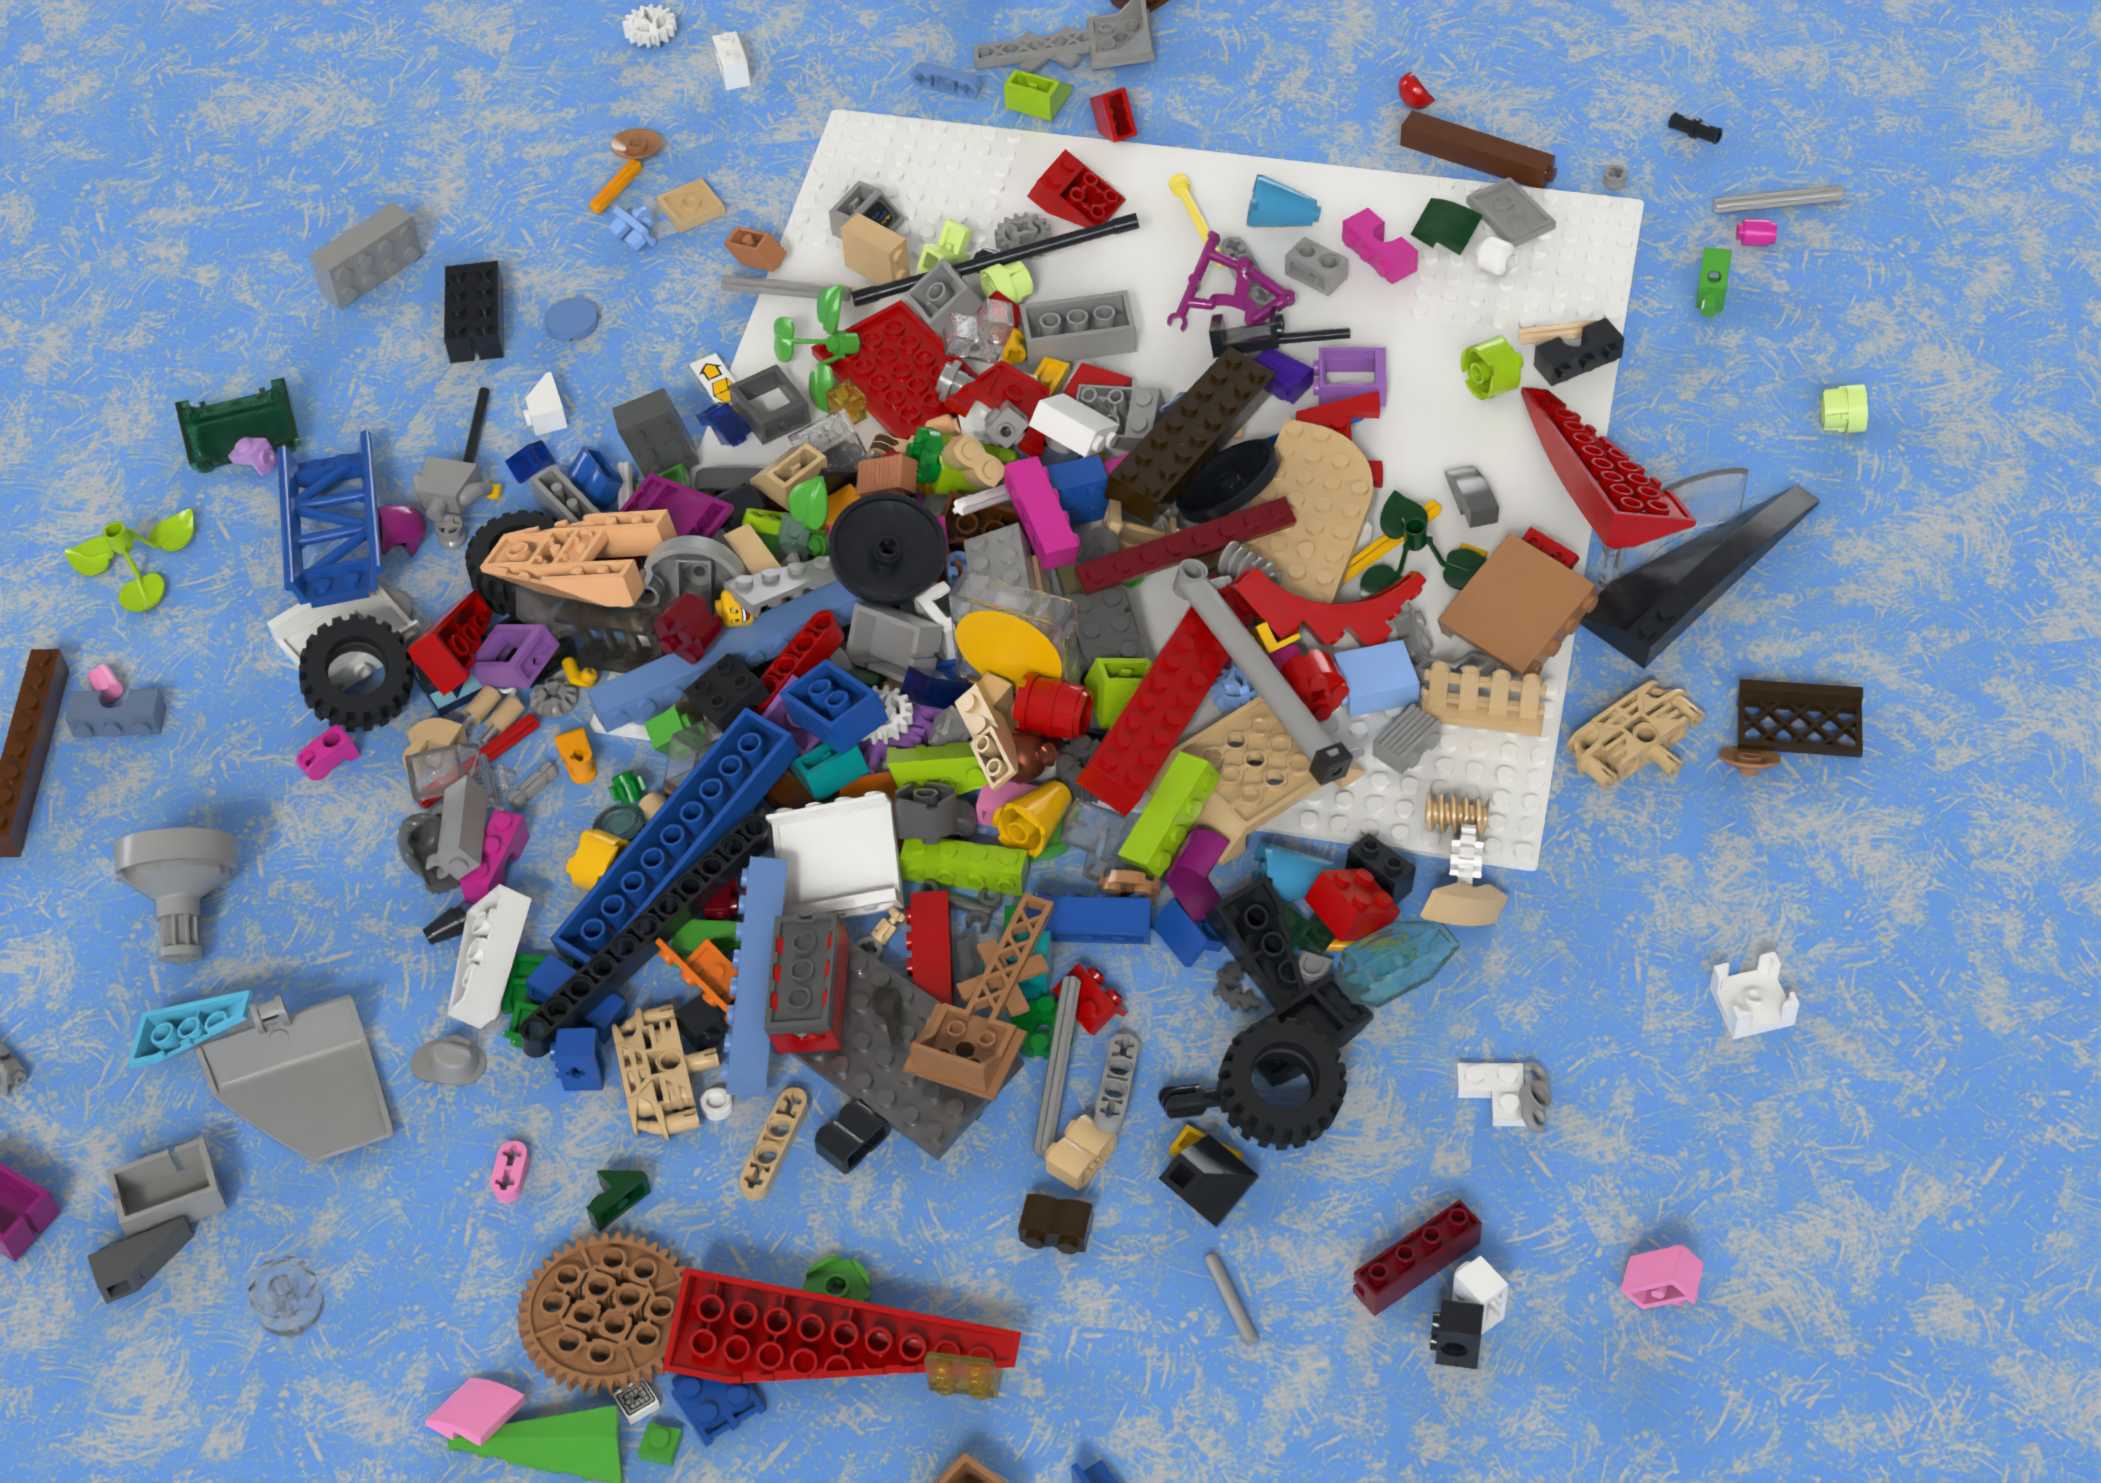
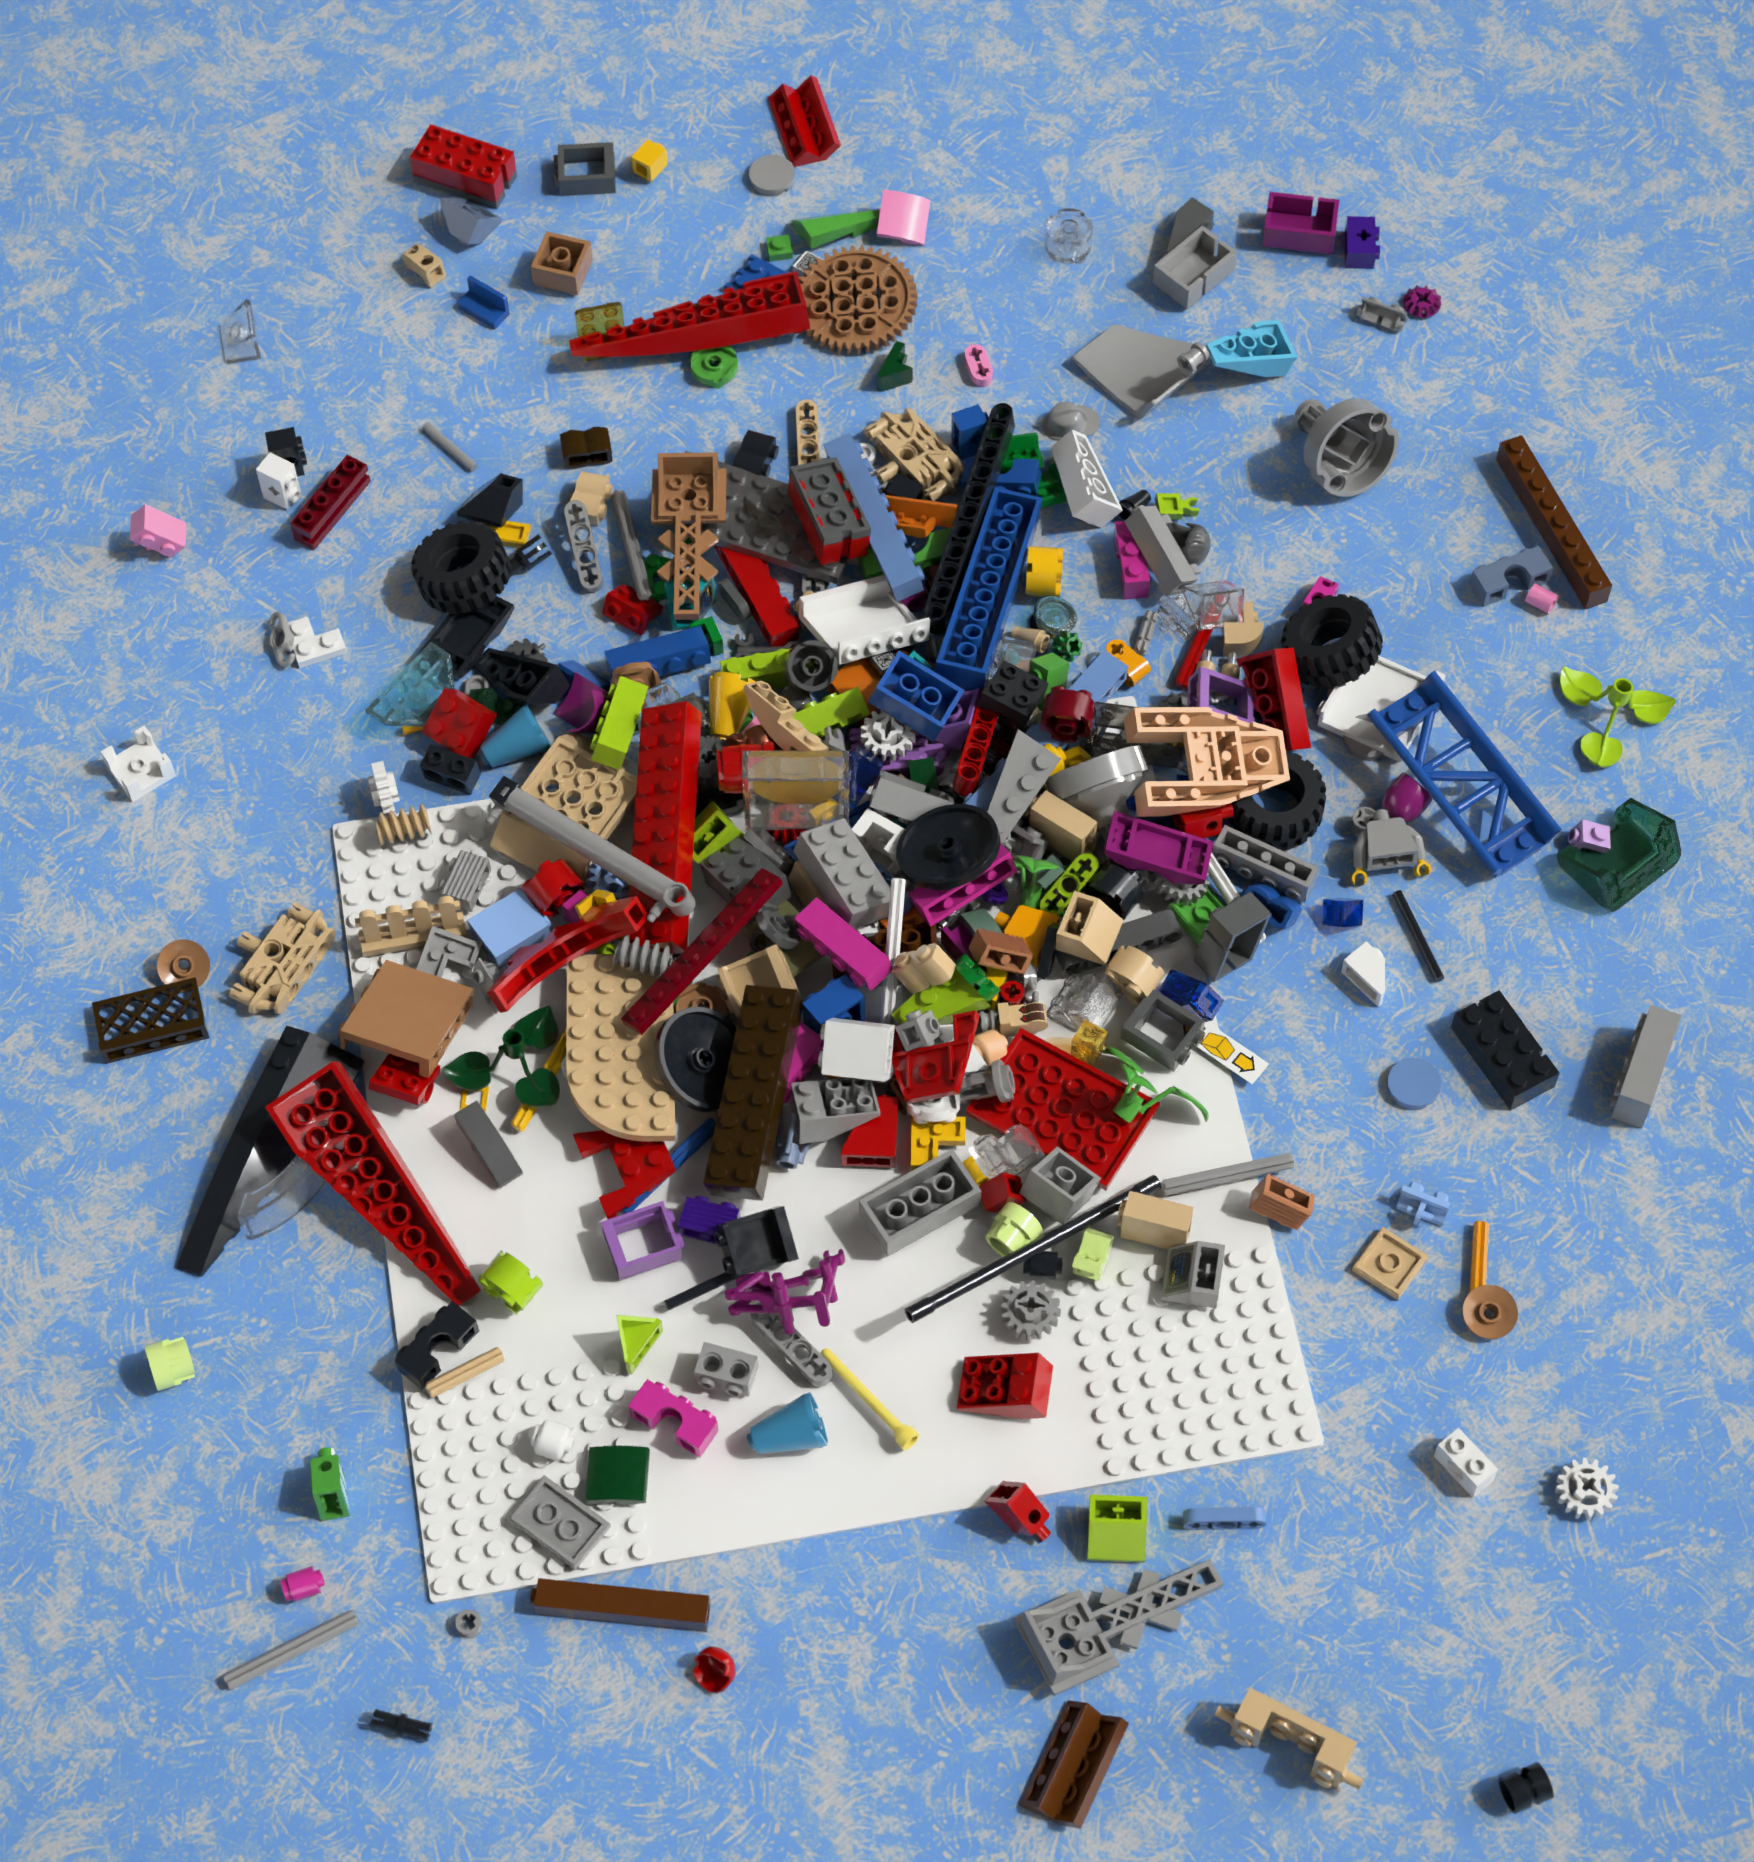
camera: 155 degrees right, 10 degrees up
(407, 911) = (1175, 507): none -> lime plate
(767, 439) = (1133, 973): none -> tan brick
(1386, 306) = (637, 1338): none -> lime slope
(1464, 904) = (372, 746): tan slope -> none

